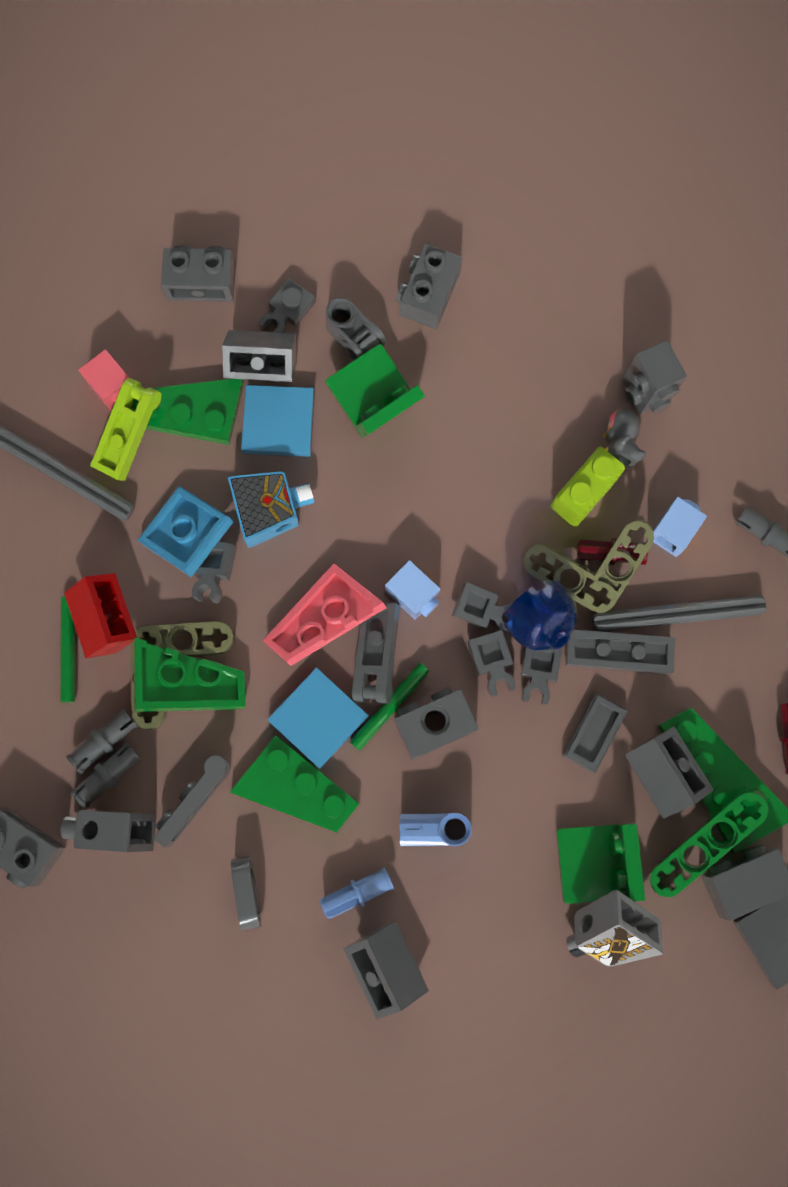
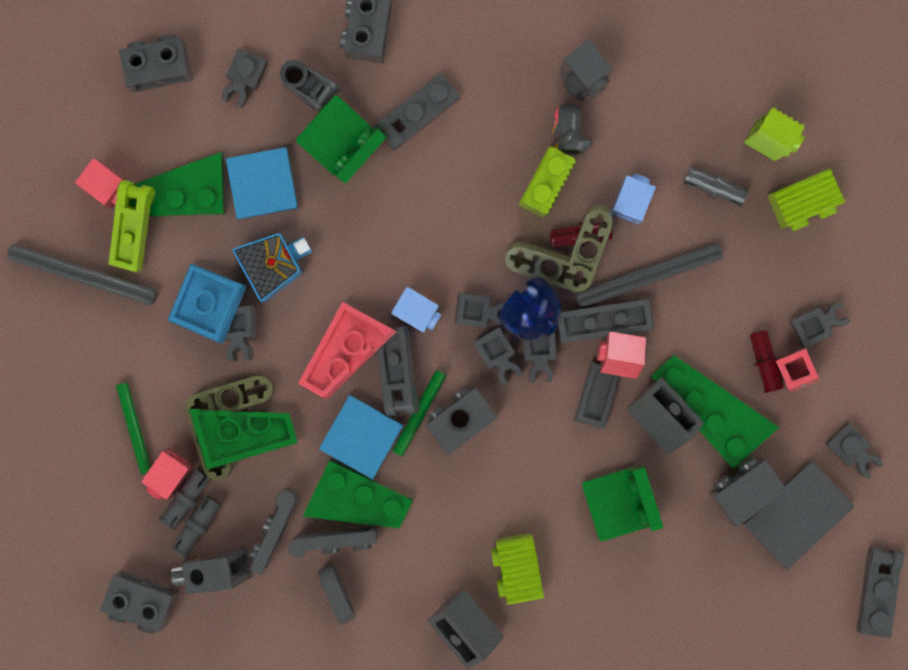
camera: 10 degrees left, 10 degrees up
(88, 708) = (166, 475): none -> coral brick
(100, 615) = (154, 395): red brick -> none
(255, 829) = (332, 541): none -> dark grey plate
(259, 355) = (231, 130): dark grey brick -> none
(356, 893) = (427, 574): medium blue axle -> none
(430, 829) = (476, 507): medium blue piece -> none
(463, 913) = (518, 568): none -> lime brick
(464, 384) = (418, 111): none -> dark grey plate
(615, 931) = (645, 556): light grey torso -> none
(633, 692) = (622, 354): none -> coral brick
(705, 840) = (706, 466): green beam -> none

